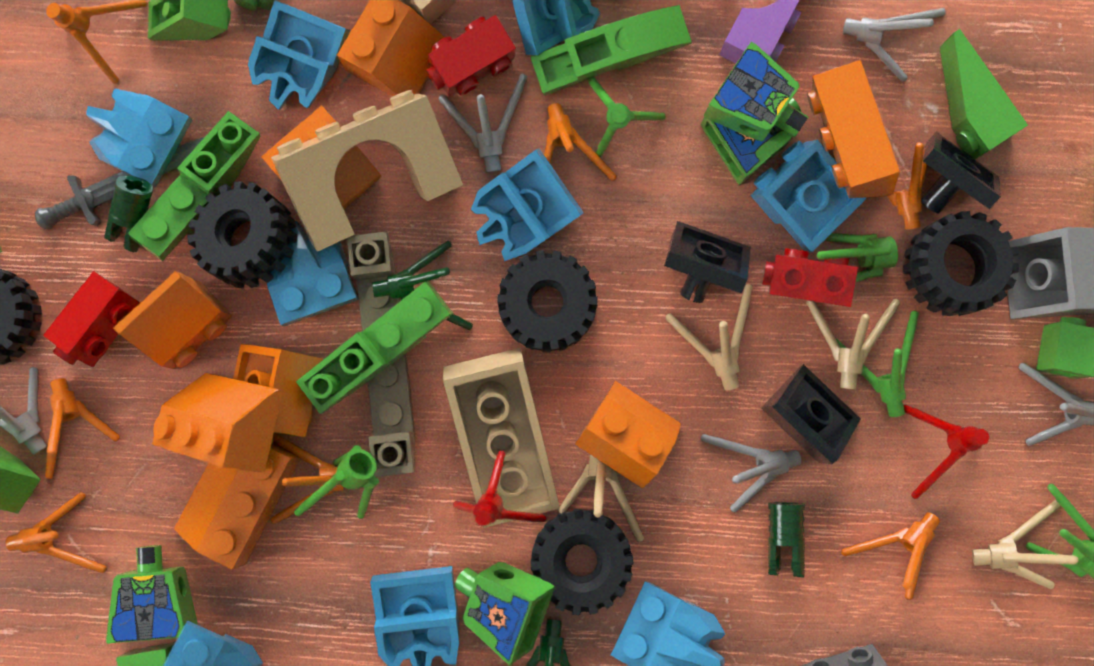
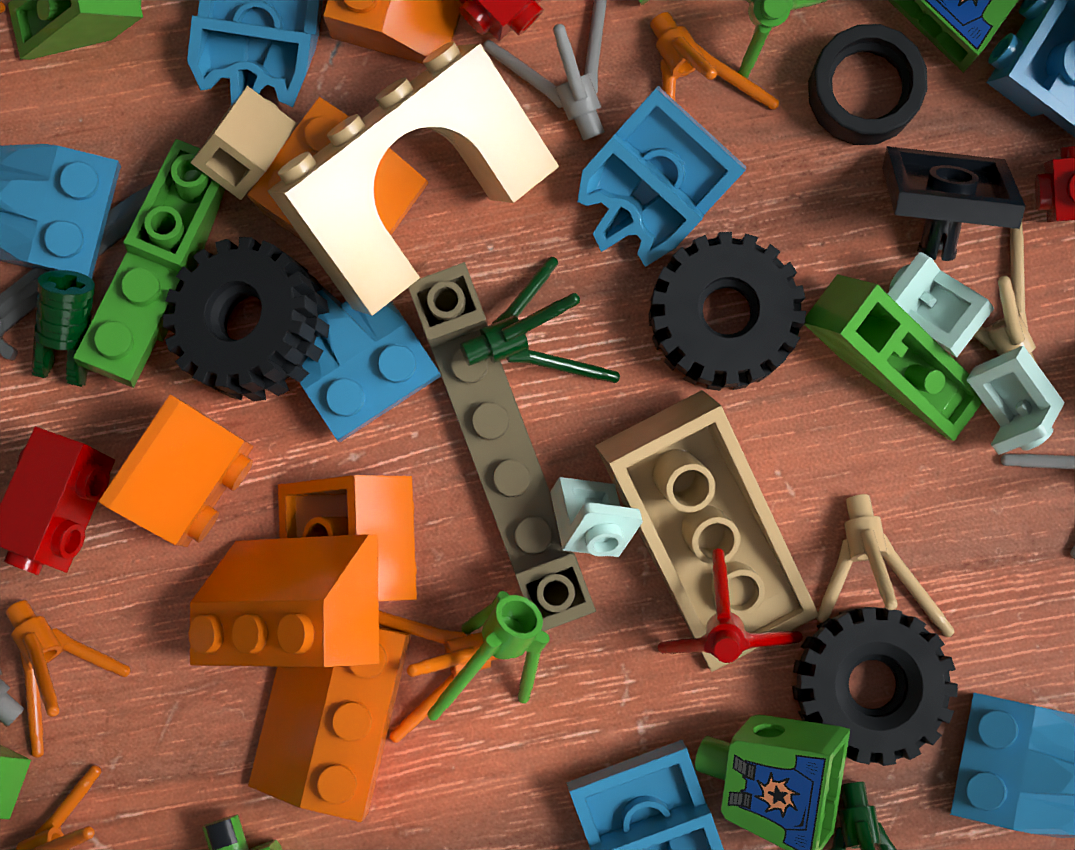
camera: 15 degrees left, 0 degrees up
(267, 122) = (244, 143): none -> tan brick
(374, 348) = (491, 439): bright green slope -> none
(427, 412) = (592, 517): none -> light aqua bracket
(629, 435) = (900, 481): orange slope -> none
(648, 355) = (893, 353): none -> bright green slope
(681, 328) = (939, 303): none -> light aqua bracket
(682, 150) = (897, 51): none -> black tyre
(718, 401) = (1018, 399): none -> light aqua bracket

